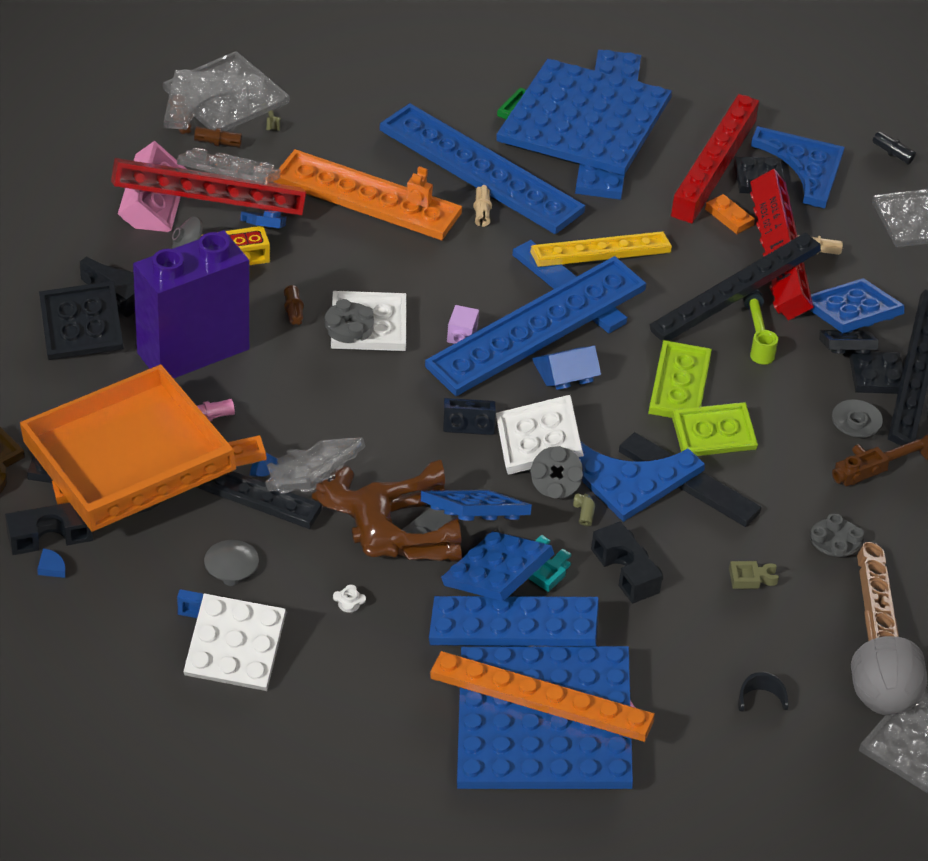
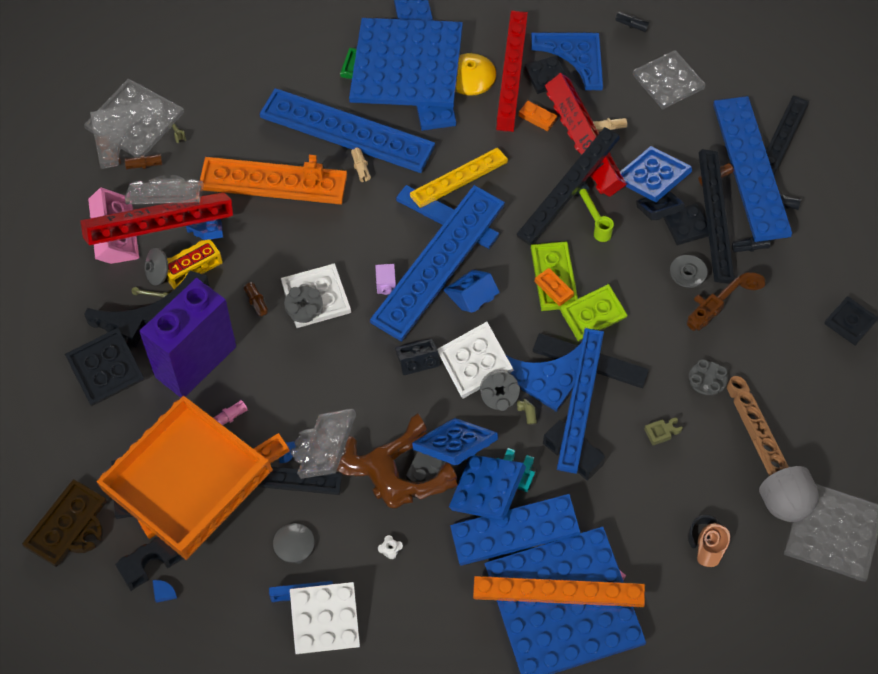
camera: 15 degrees left, 15 degrees up
(654, 507) = (580, 401): none -> blue tile
(665, 153) = (475, 74): none -> yellow dish
(673, 387) = (554, 287): none -> orange plate
(759, 719) = (712, 548): none -> nougat cap

